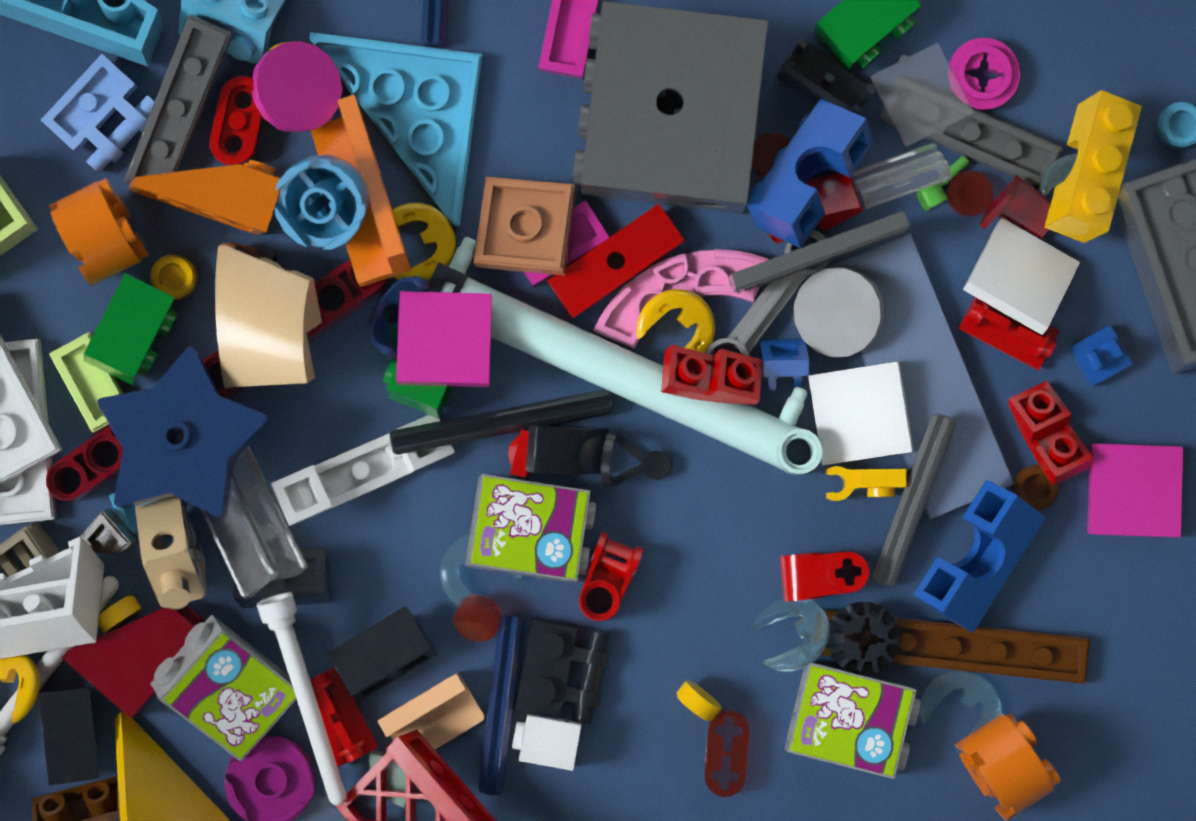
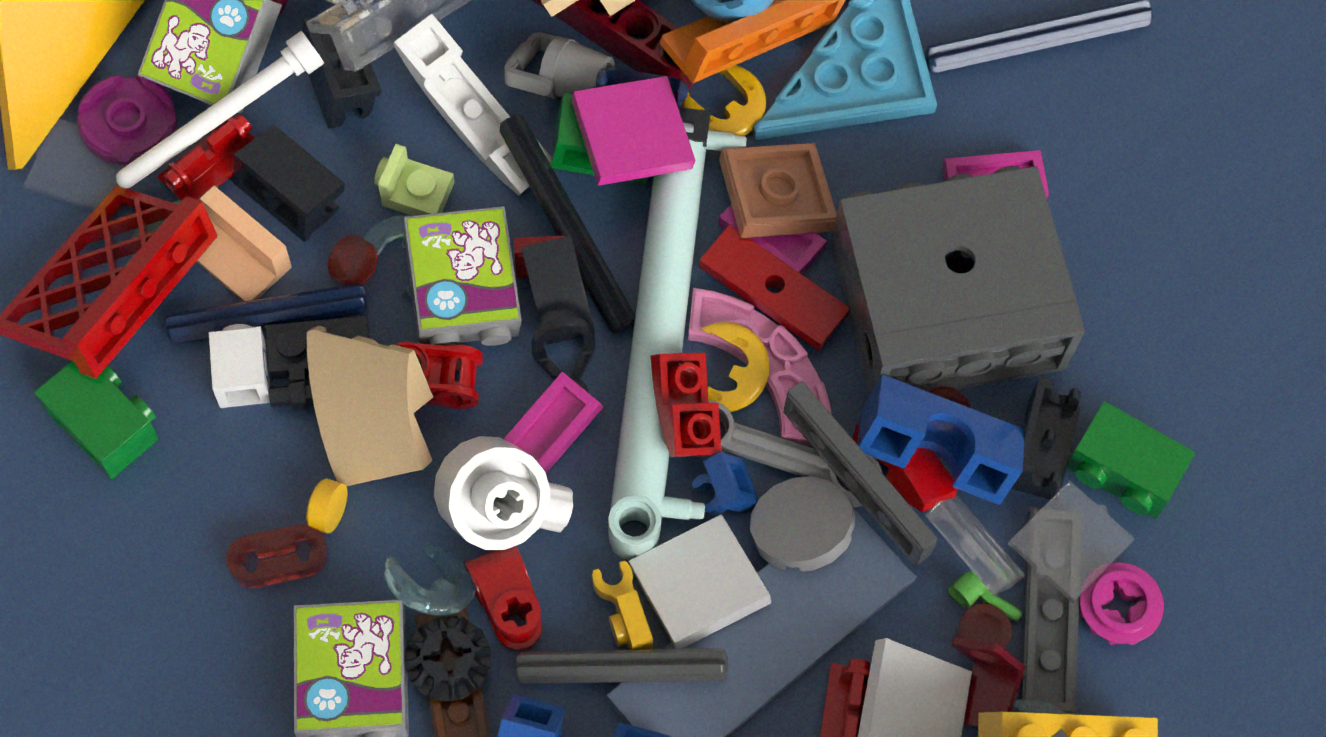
camera: 70 degrees right, 20 degrees down
(353, 374) = (564, 67): none -> light grey piece
(418, 544) = (412, 185): none -> yellowish green bracket
(630, 644) = (367, 406): none -> tan slope
(685, 494) = (554, 421): none -> dark pink tile
(742, 557) = (498, 494): none -> white piece

